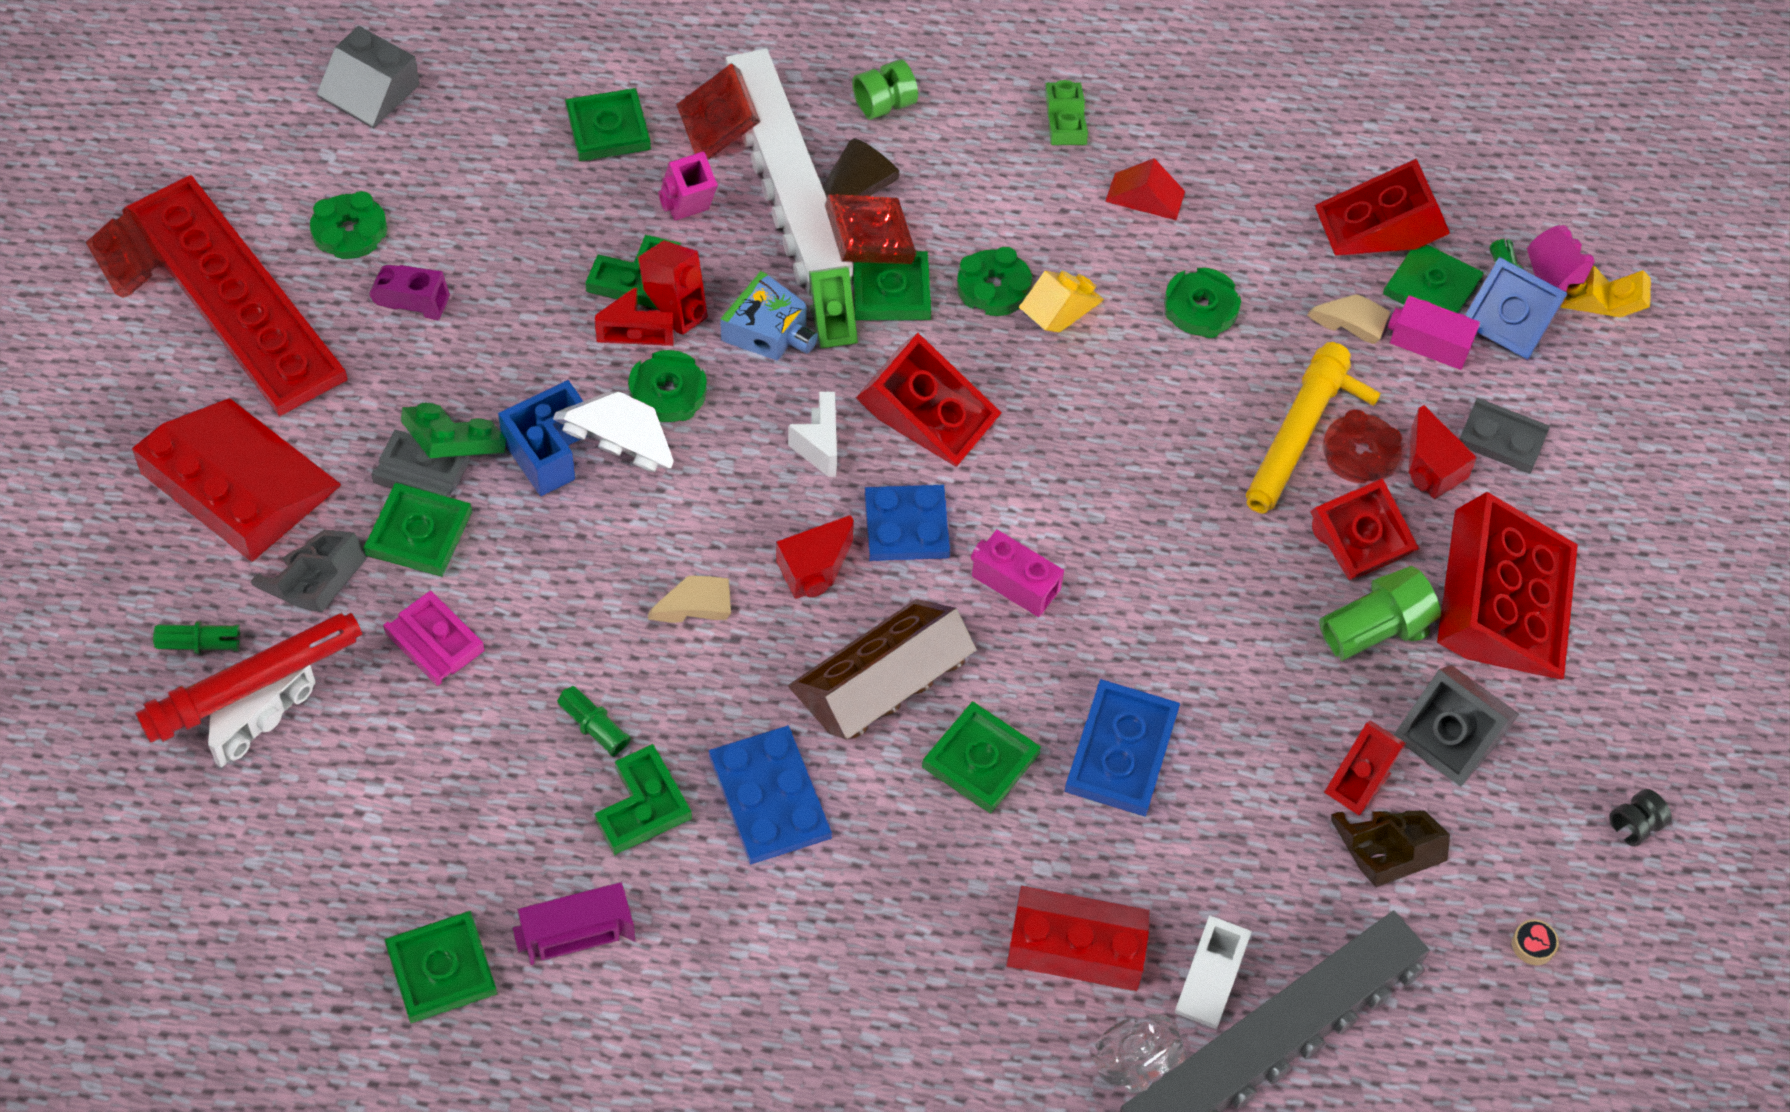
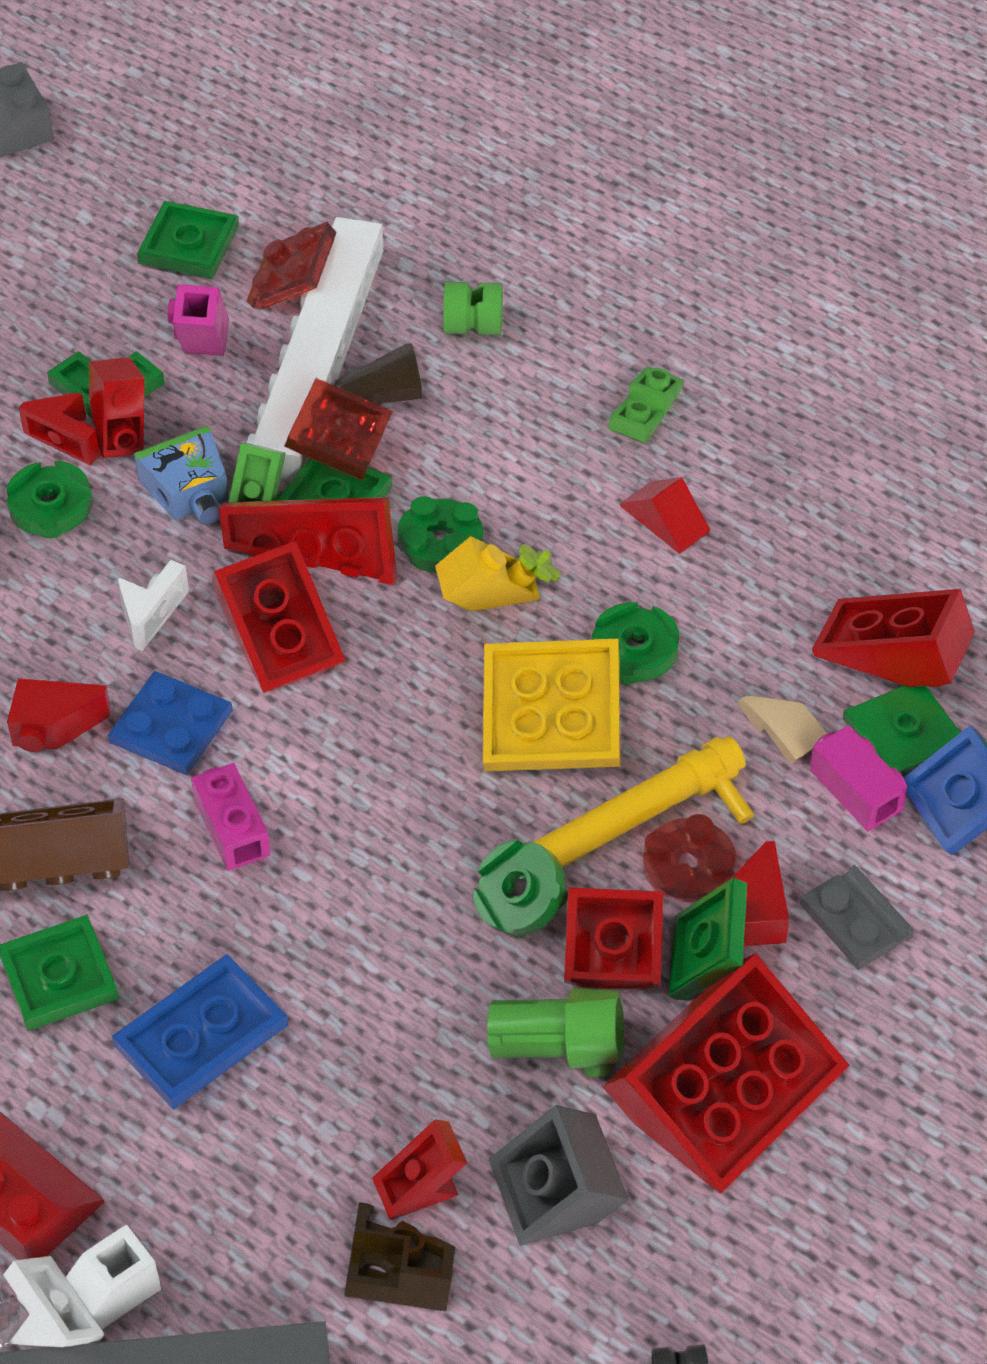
camera: 35 degrees right, 5 degrees down
(937, 309) = (330, 533): none -> red wing
(1087, 271) = (539, 563): none -> lime plant
(1186, 376) = (551, 705): none -> yellow plate
(1211, 1011) = (54, 1308): none -> white slope
(1265, 502) = (539, 901): none -> green plate
(1435, 498) = (708, 940): none -> green plate

